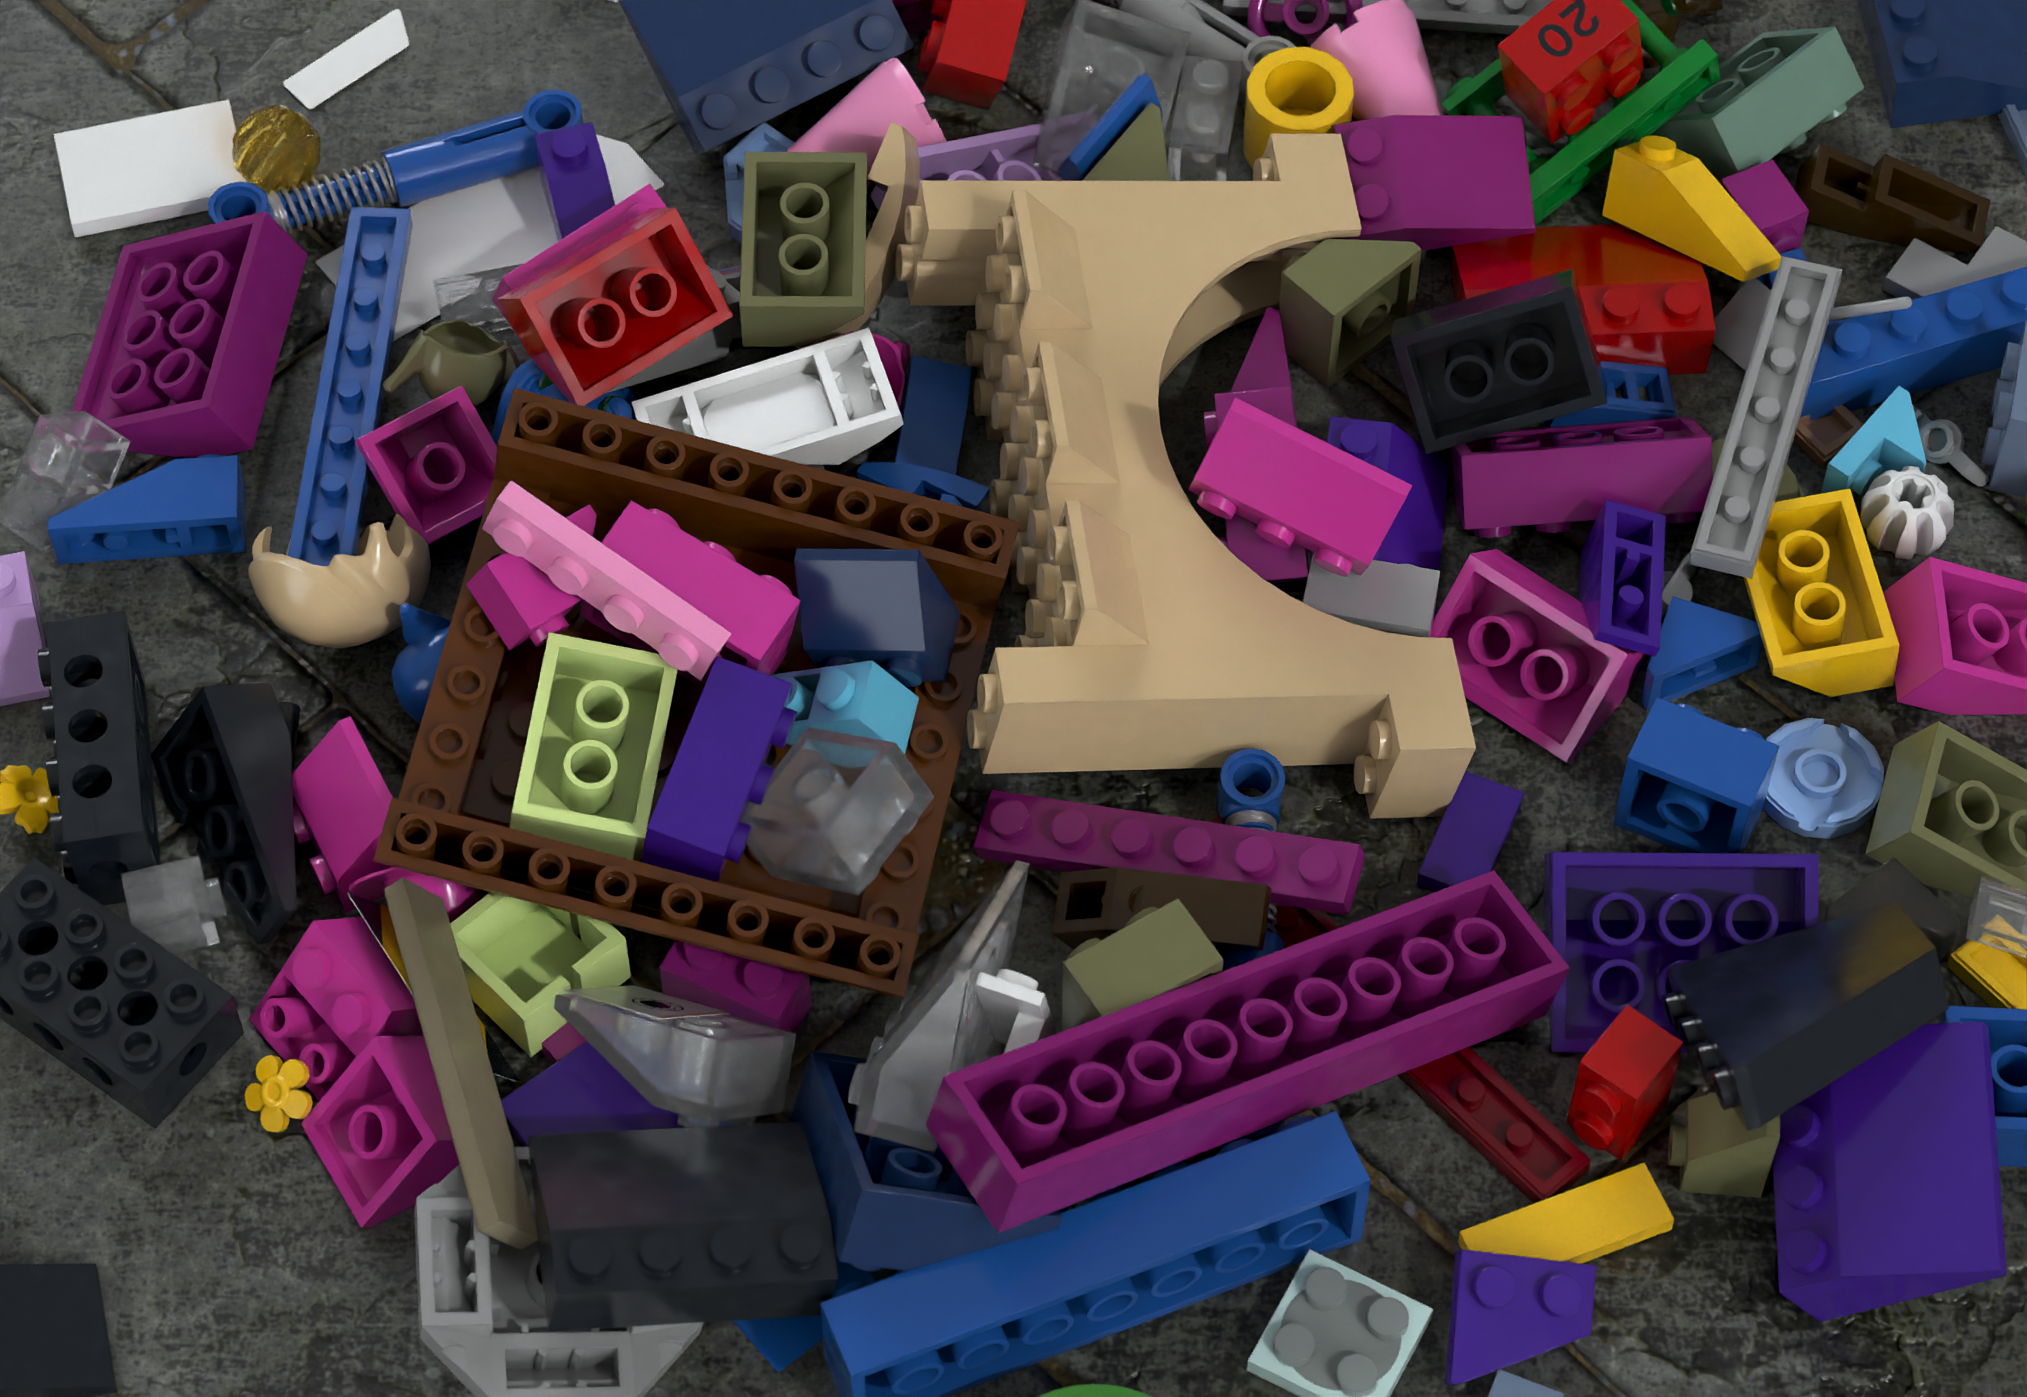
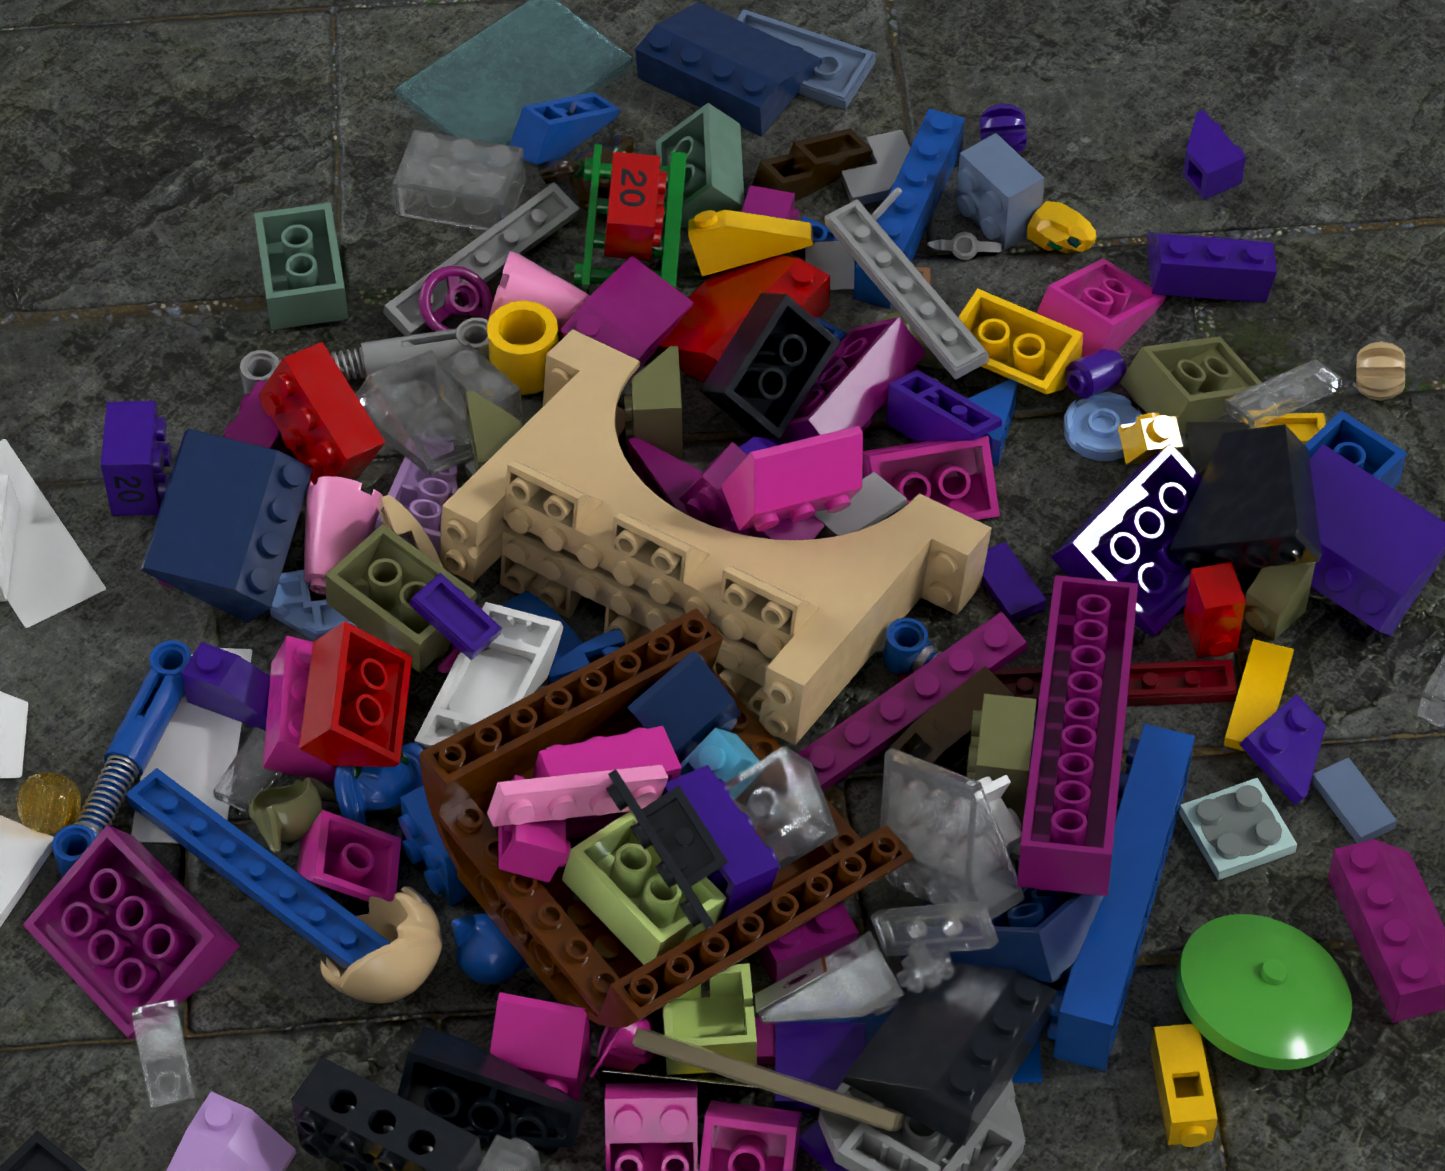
camera: 50 degrees left, 5 degrees down
(167, 512) = (243, 1008): blue slope -> none
(627, 719) = (678, 838): none -> black bracket
(767, 1120) = (924, 968): none -> clear plant
(806, 310) = (455, 616): none -> dark purple tile
(816, 1089) = (939, 927): none -> clear tile
(1109, 129) = (454, 428): blue slope -> none
(1694, 781) = (1076, 466): blue brick -> none
(1833, 831) = (1148, 436): none -> yellow brick
(1870, 706) = (1095, 373): none -> dark purple brick
(1883, 443) = (953, 267): medium azure slope -> none
(1907, 512) = (998, 277): white piece -> none

